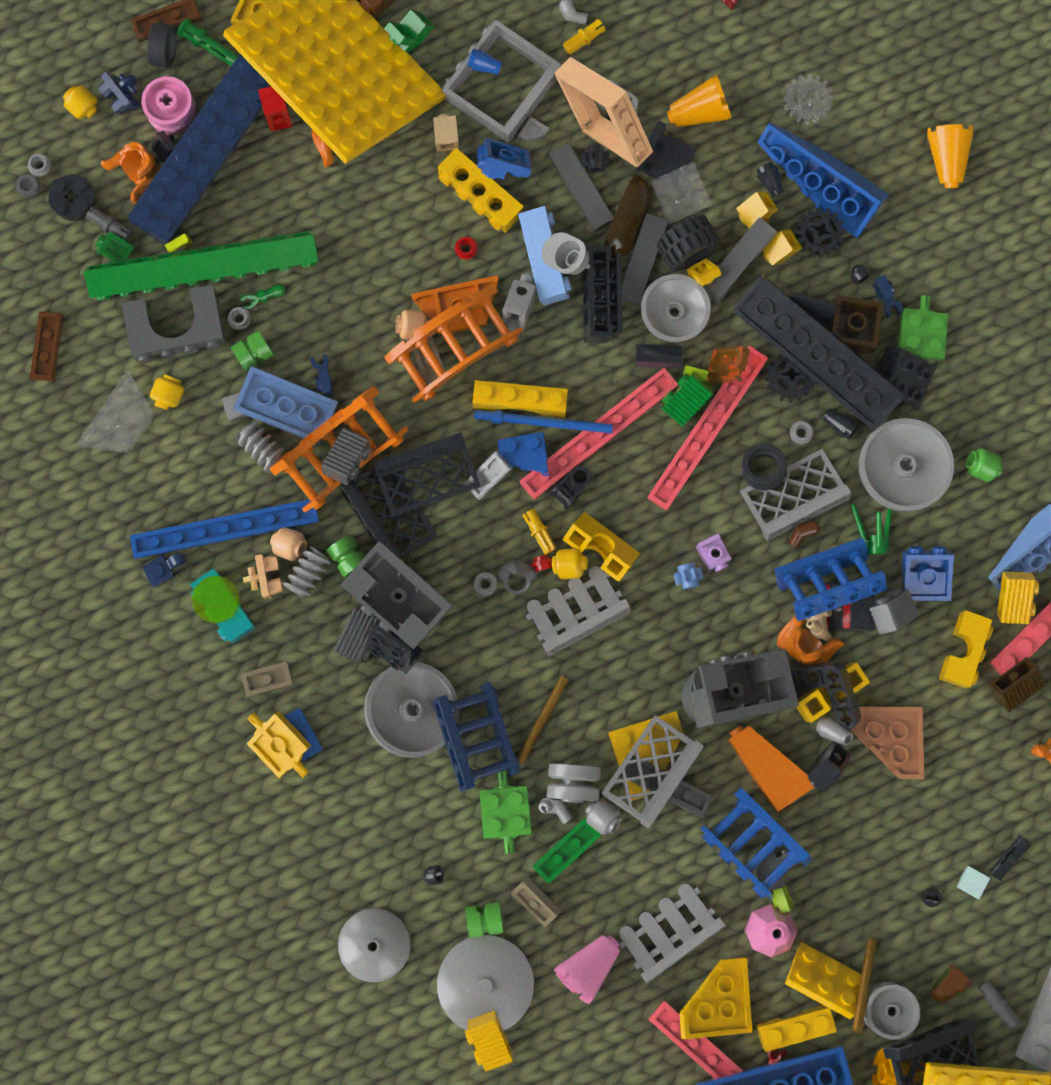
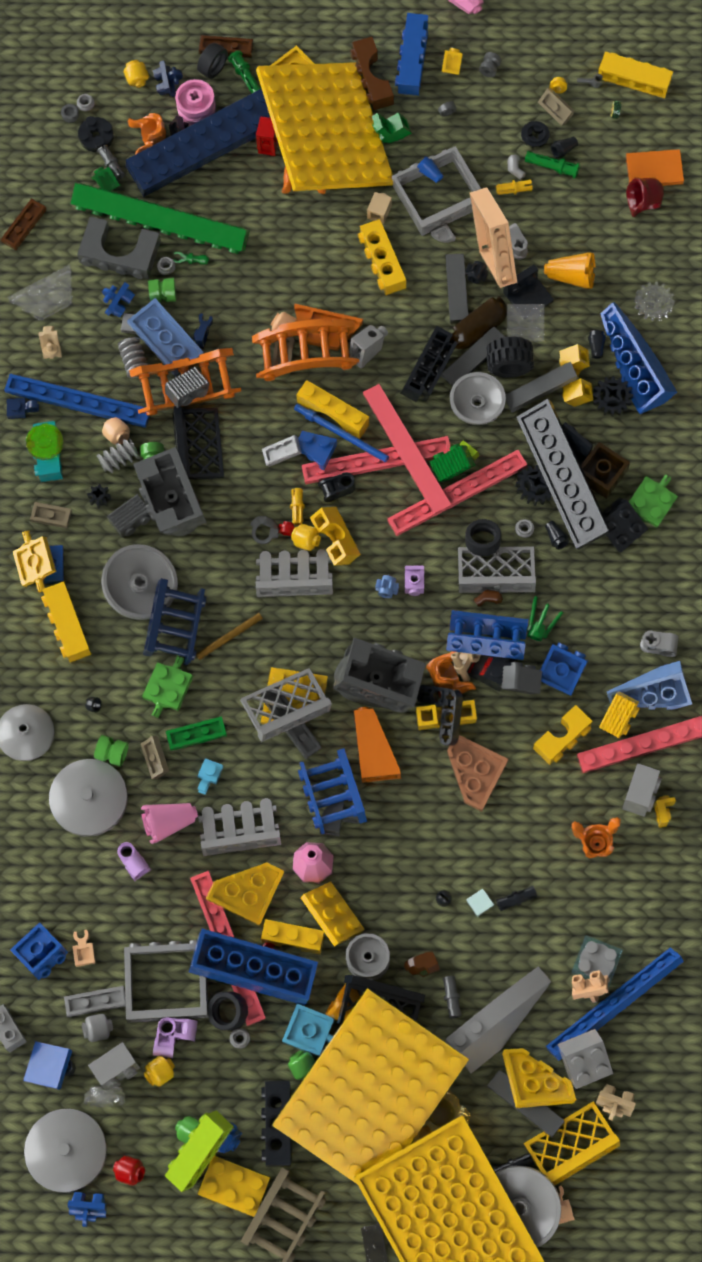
camera: 30 degrees right, 10 degrees down
(157, 477) = (50, 343): none -> tan hips
(167, 392) = (88, 290): yellow head -> none
(182, 241) = (155, 195): neon yellow tile -> none
(207, 376) = (114, 307): none -> blue hips
(267, 586) = (84, 444): light nougat hips -> none
(317, 632) = (96, 491): none -> black gear
(352, 796) = (66, 622): none -> yellow brick
(392, 649) = (148, 531): black bracket -> none
(415, 458) = (241, 414): black fence -> none
(466, 241) = (351, 287): red plate -> none
(485, 576) = (239, 519): light grey plate -> none
(489, 1041) = (68, 834): yellow brick -> none
(498, 158) = (408, 239): blue plate -> none
(537, 228) = (403, 320): light blue brick -> none
(555, 806) = (205, 700): light grey arm -> none
(565, 254) = (416, 323): light grey piece -> none
(573, 785) = (225, 685): light grey wheel -> none
(579, 1035) = (134, 863): none -> lavender piece
(603, 816) = (235, 722): light grey head -> none
(604, 887) = (209, 774): none -> medium azure plate
(628, 406) = (407, 449): none -> coral tile
(658, 356) = (449, 427): black tile -> none
(704, 272) = (511, 383): yellow bracket -> none
(728, 364) = (493, 453): clear orange plate -> none
(782, 899) = (333, 842): lime plate -> none
(829, 766) = (415, 763): black brick -> none
(830, 729) = (433, 743): light grey cone -> none
(859, 274) = (627, 439): black hinge -> none
(864, 986) = (358, 929): pearl gold bar -> none
(884, 291) = (639, 457): dark blue plate -> none
(906, 465) = (587, 584): light grey dish -> none
(984, 465) = (647, 612): bright green head -> none
(1017, 492) = (662, 643): none -> light grey piece
(1017, 684) = (587, 776): dark brown brick -> none

